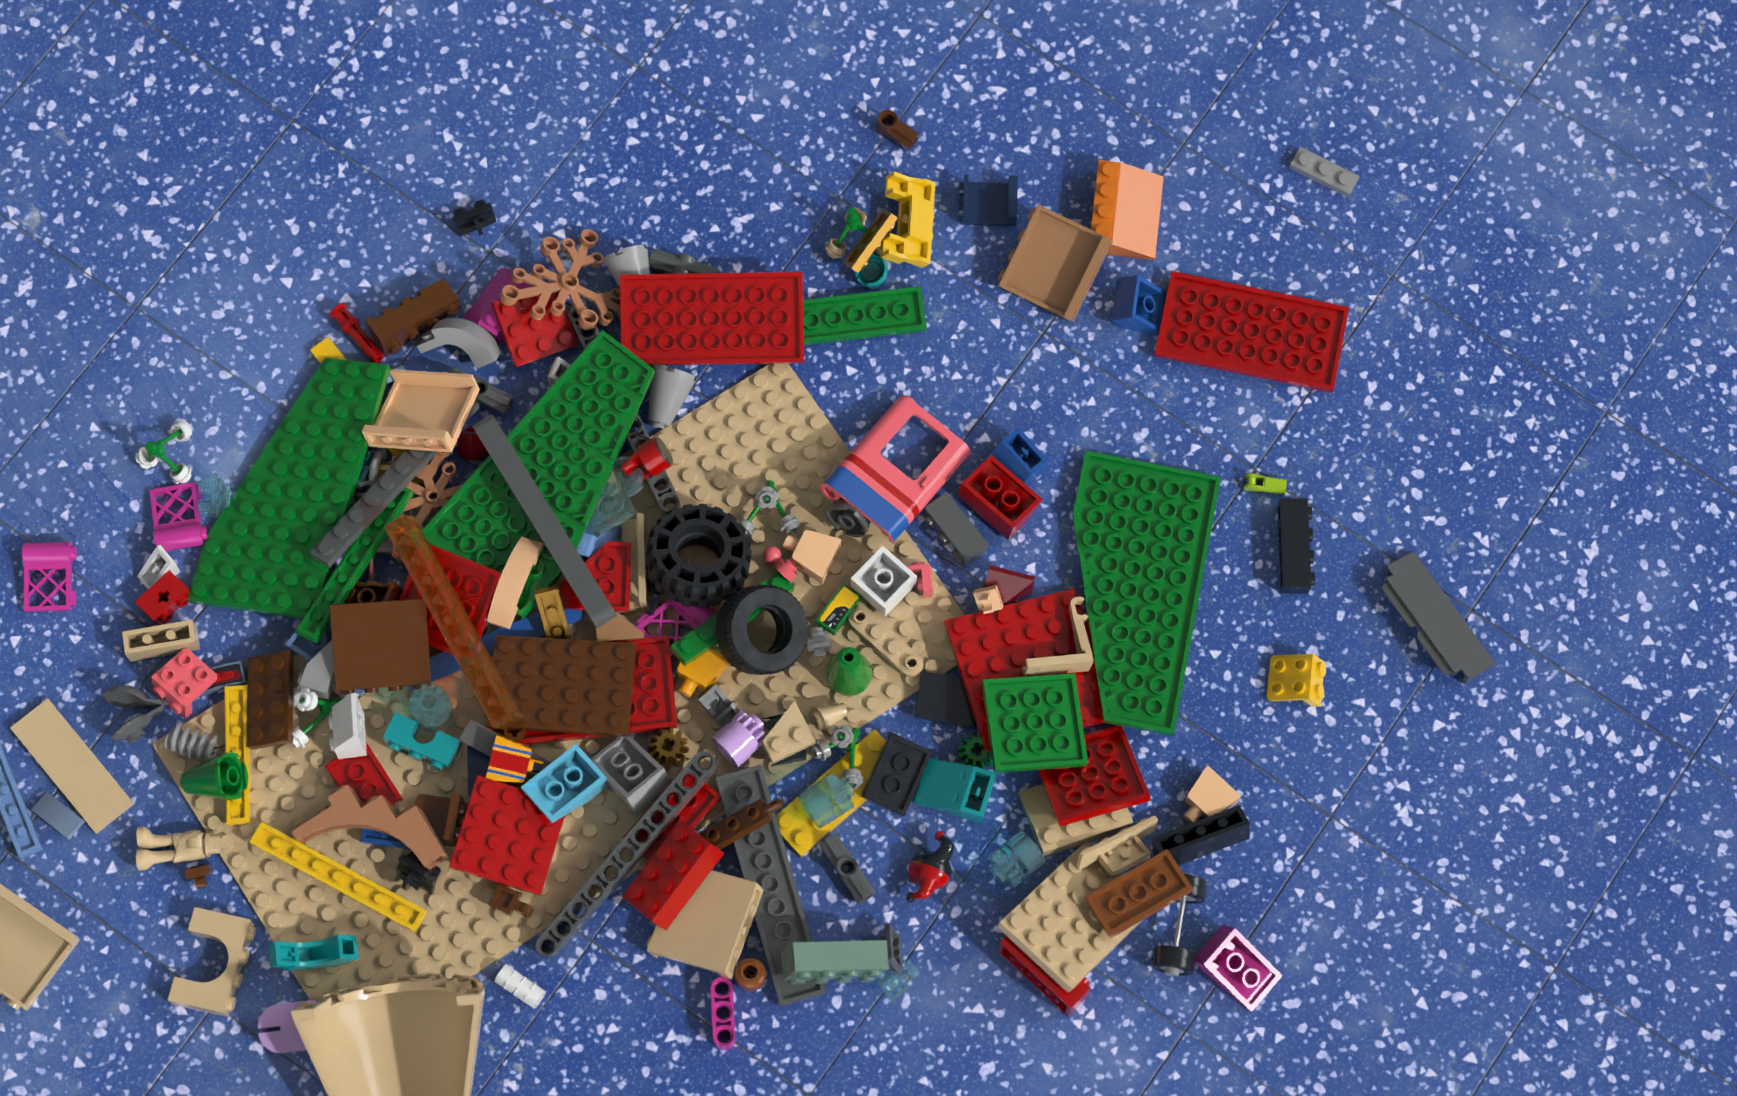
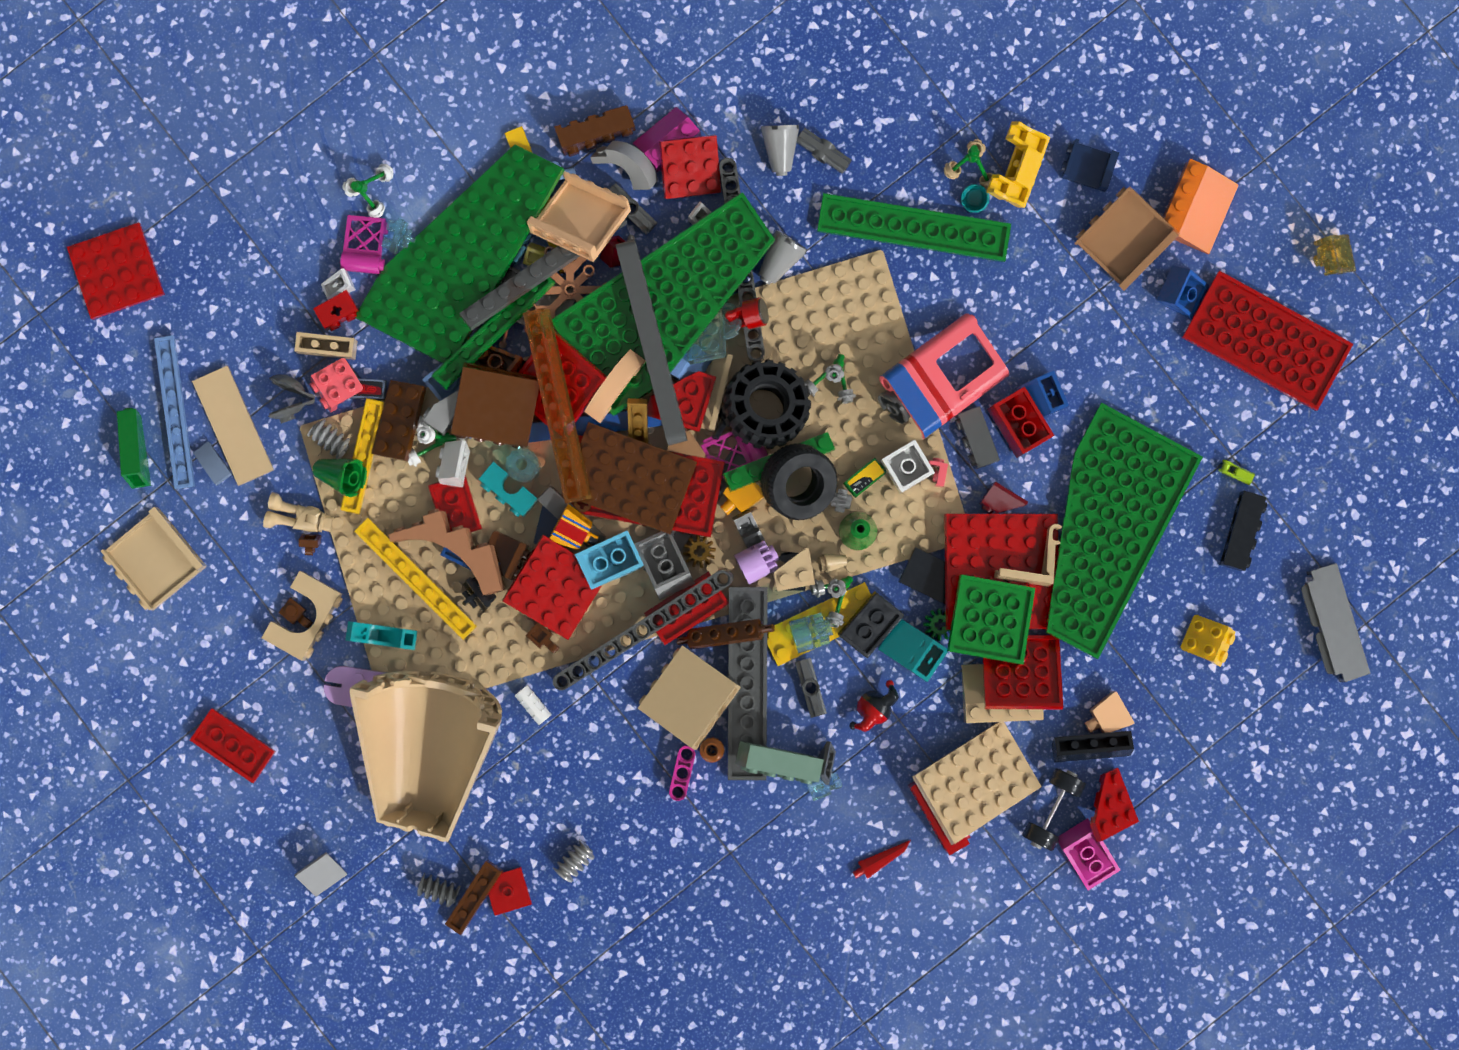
camera: 15 degrees right, 15 degrees up
(51, 557) = (252, 248): dark pink piece -> none
(201, 961) = (294, 612): none -> reddish brown plate
(350, 326) = (542, 122): red pin -> none
(379, 455) = (529, 251): light grey piece -> none
(474, 219) = (666, 59): black hips -> none
(565, 283) = (750, 162): nougat plant -> none
(672, 875) = (673, 657): red brick -> none
(713, 318) = (835, 205): red plate -> none
(787, 568) = (833, 432): coral plate -> none
(813, 553) = (858, 425): light nougat torso -> none
(870, 240) = (982, 175): pearl gold plate -> none
(886, 642) = (894, 514): tan plate -> none
(897, 131) = (1034, 83): reddish brown piece -> none
(986, 1055) = (876, 862): none -> red bar
(988, 599) = (985, 506): light nougat tile -> none
(1016, 859) = (943, 721): clear light blue gear -> none
(1121, 850) = (1027, 740): tan bracket -> none
(1138, 893) = (1030, 781): dark orange plate -> none
(1247, 900) = (1113, 807): none -> red plate
(1294, 217) = (1335, 255): none -> clear yellow brick
(1324, 172) = (1372, 219): light grey plate -> none

